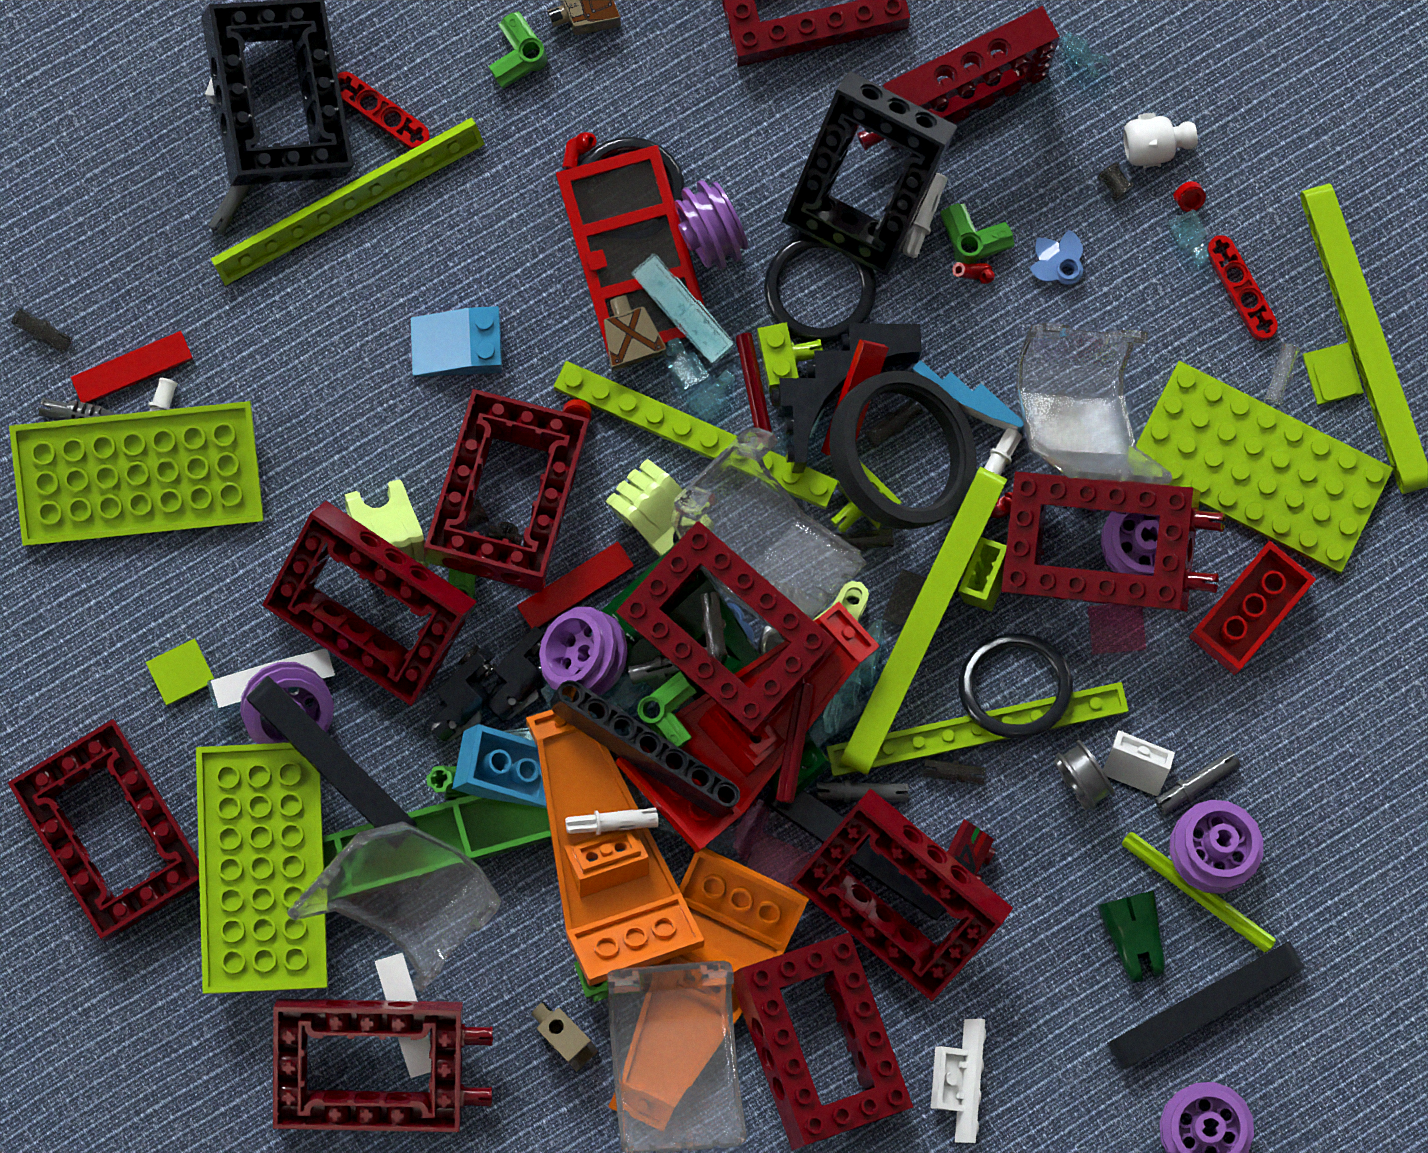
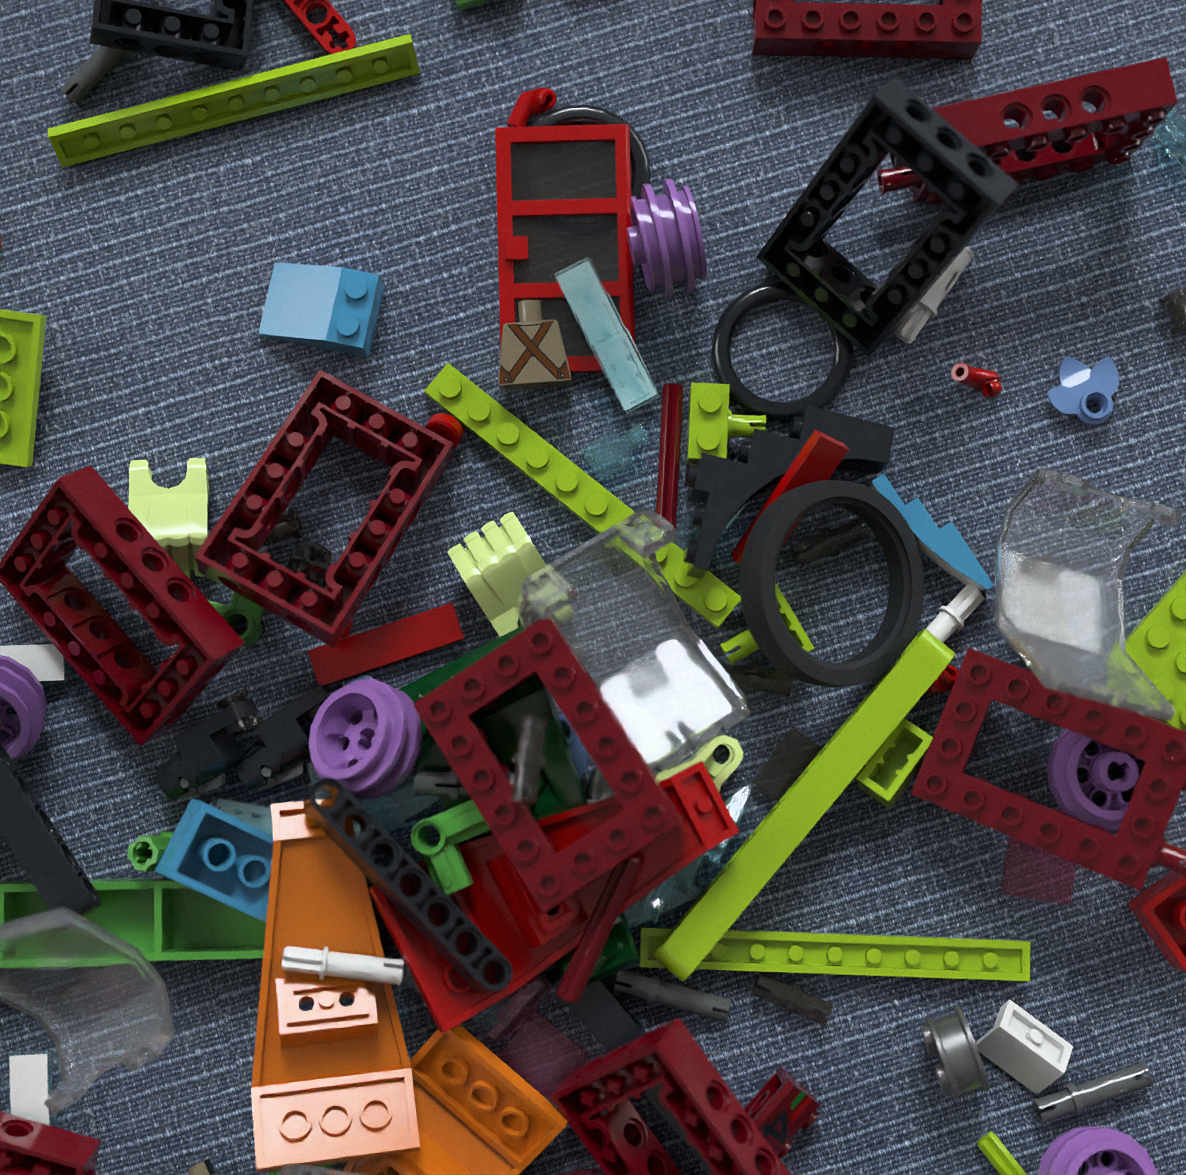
camera: 20 degrees right, 5 degrees up
(685, 368) = (590, 409): clear light blue plate -> none
(962, 232) = (999, 345): bright green piece -> none
(996, 643) = (853, 957): black wedge -> none

